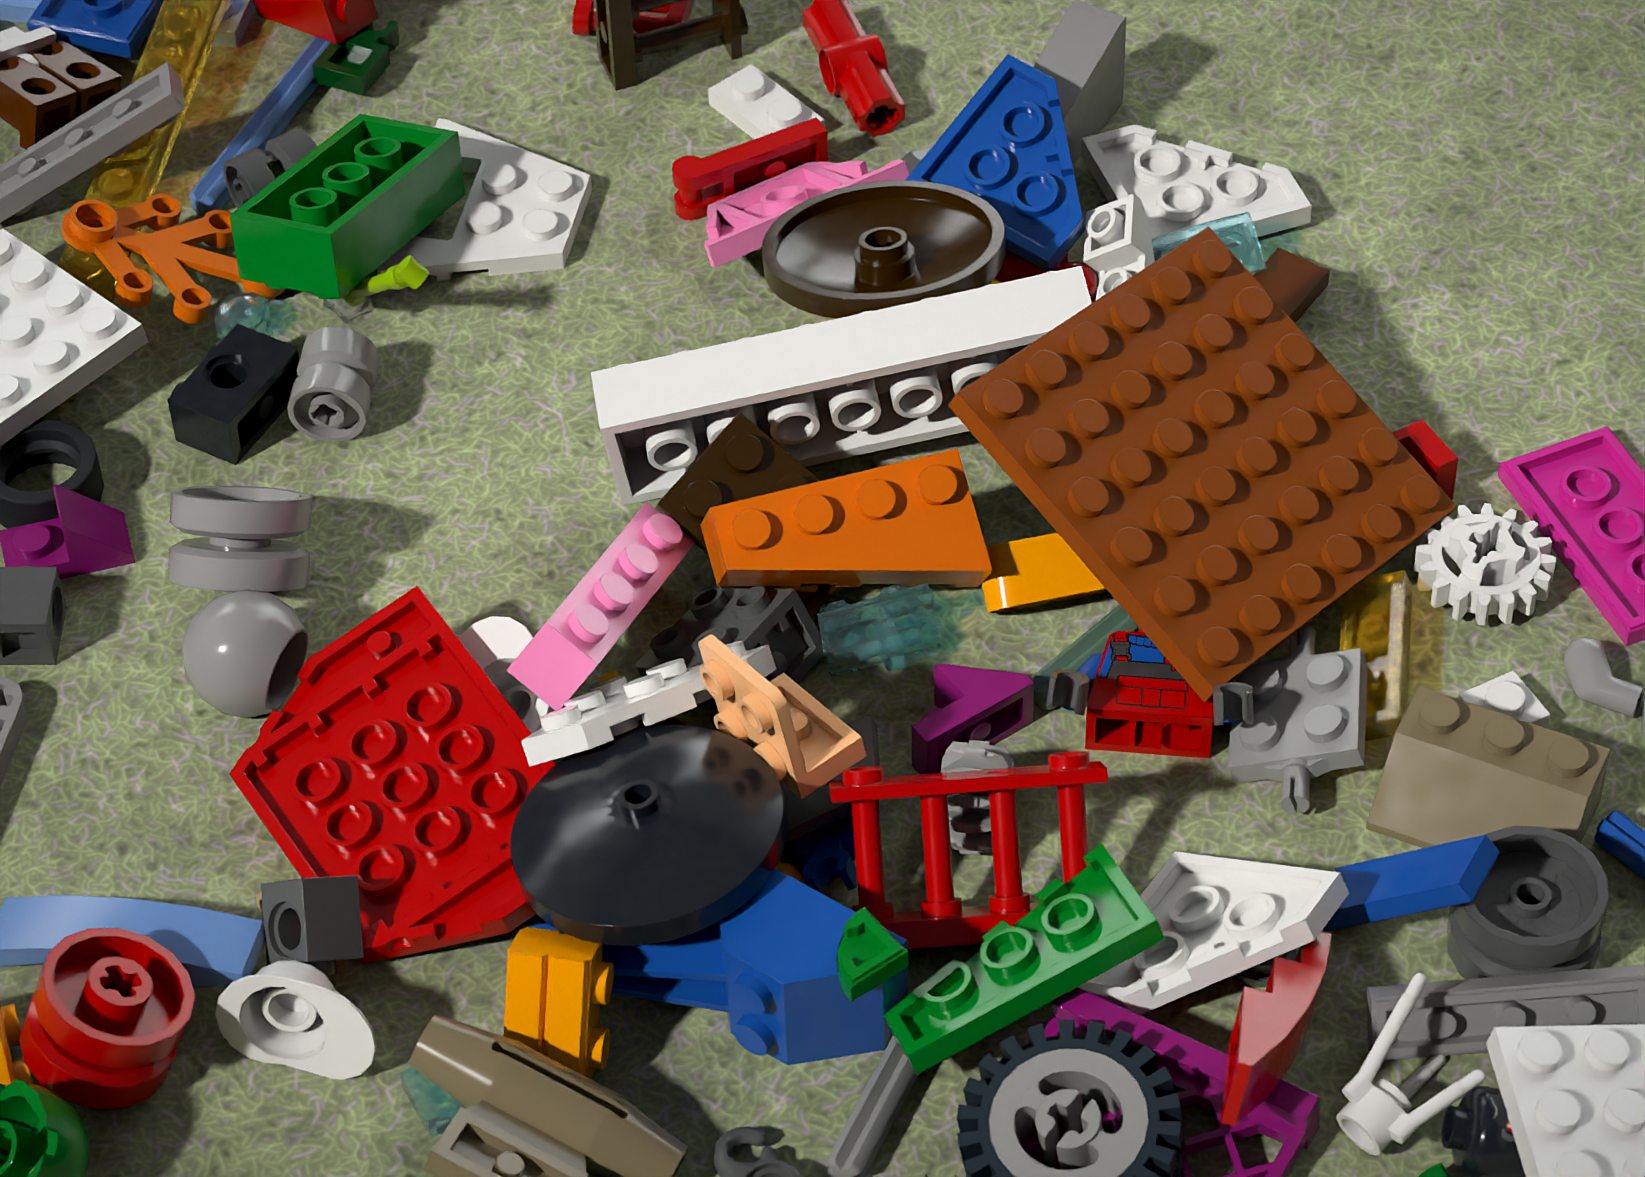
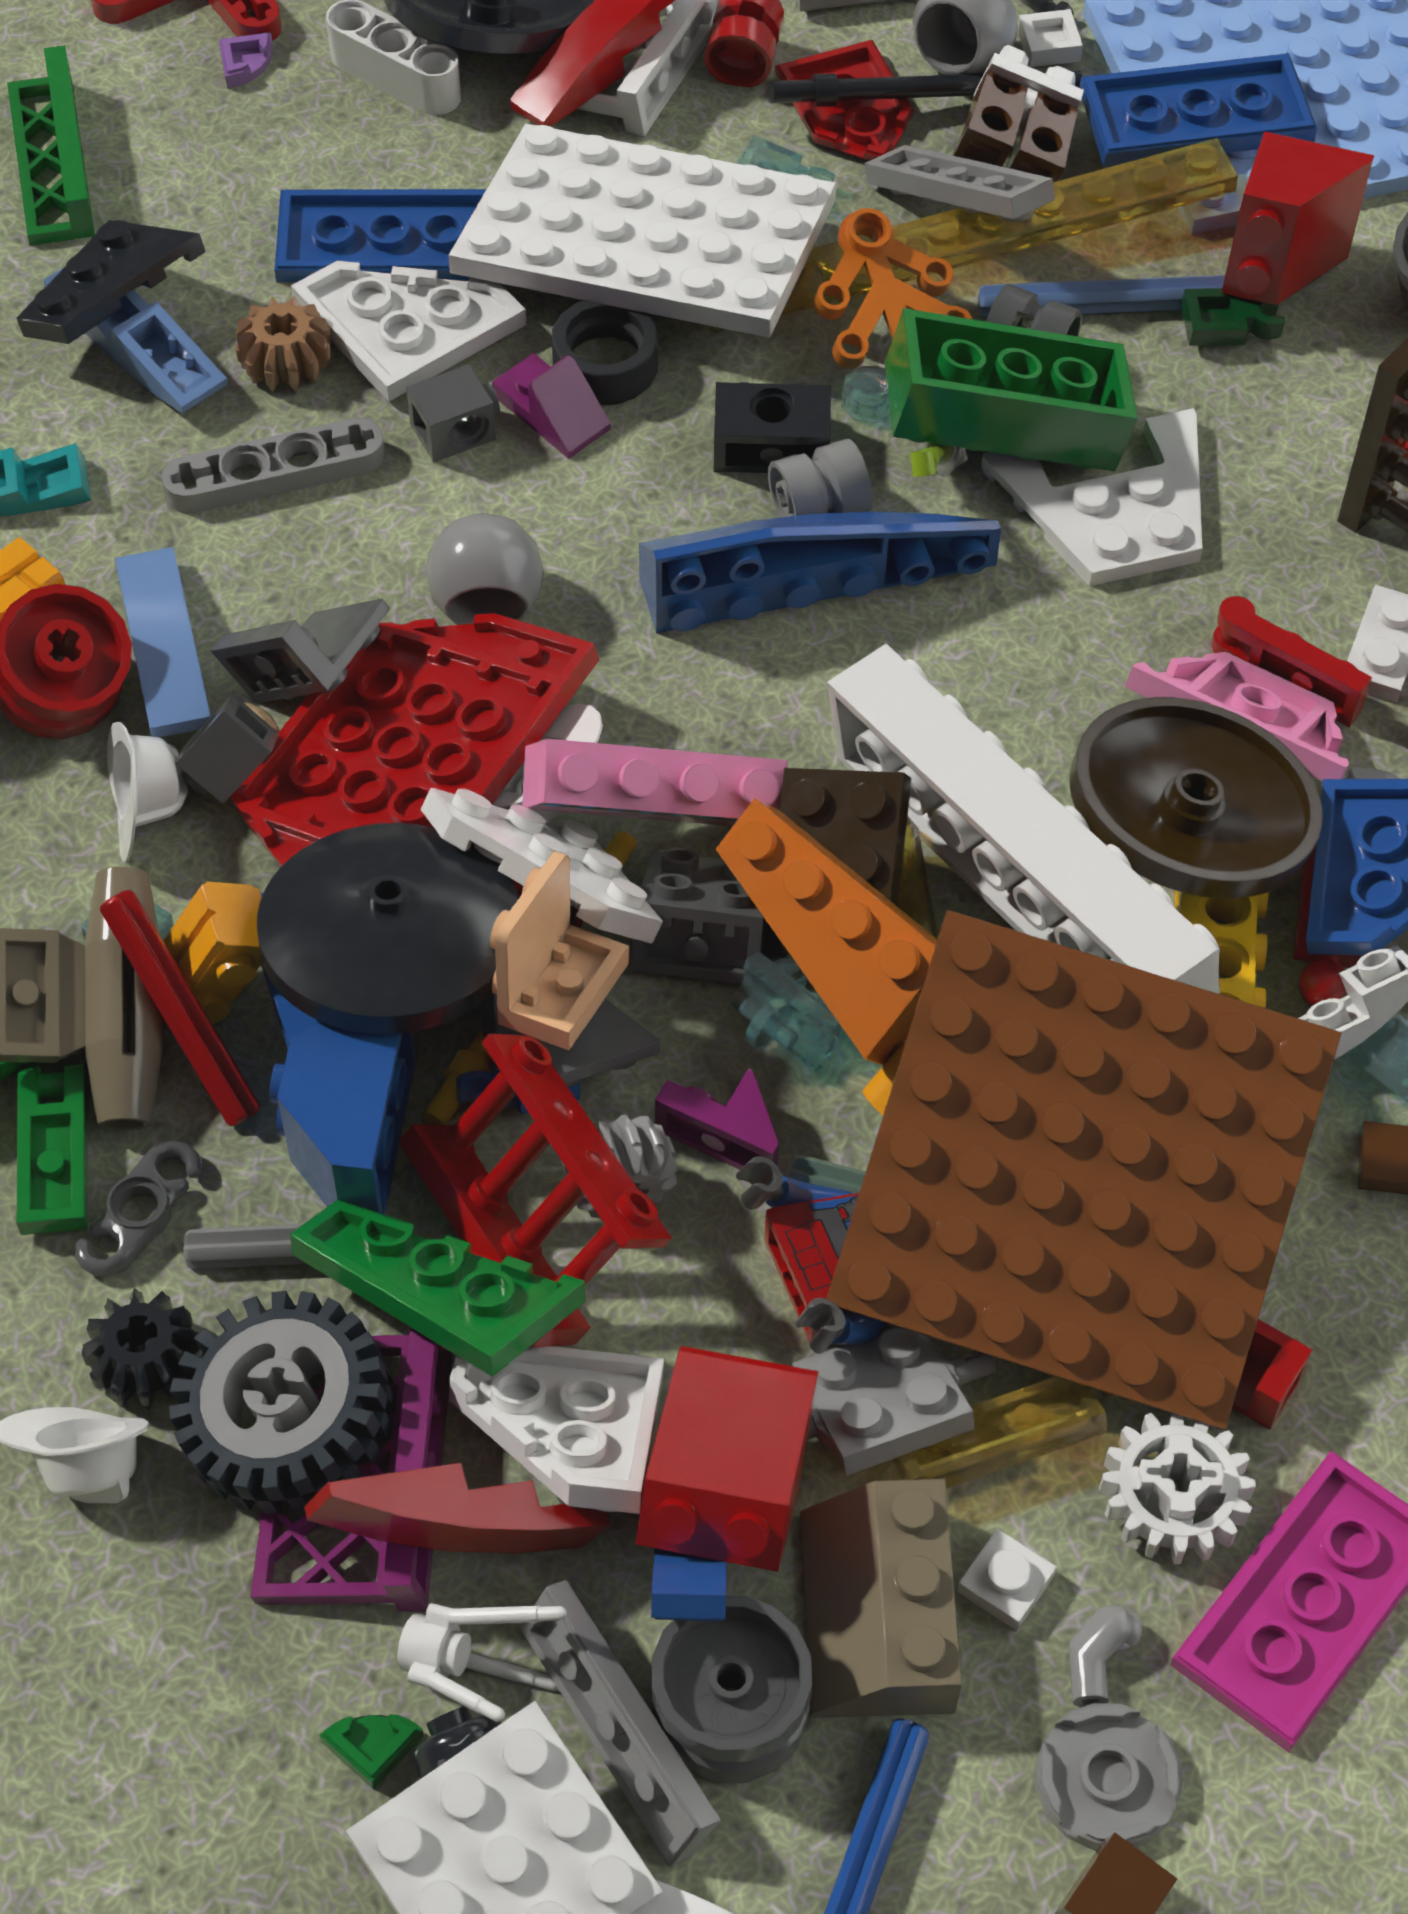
camera: 60 degrees right, 10 degrees up
(238, 819) = (298, 659): none -> dark grey bracket
(239, 538) = (584, 502): light grey wheel -> none
(401, 437) = (804, 560): none -> blue wedge
(599, 1053) = (180, 1007): none -> red axle
(867, 955) = (330, 1143): green tile -> none
(1332, 807) = (727, 1459): none -> red slope

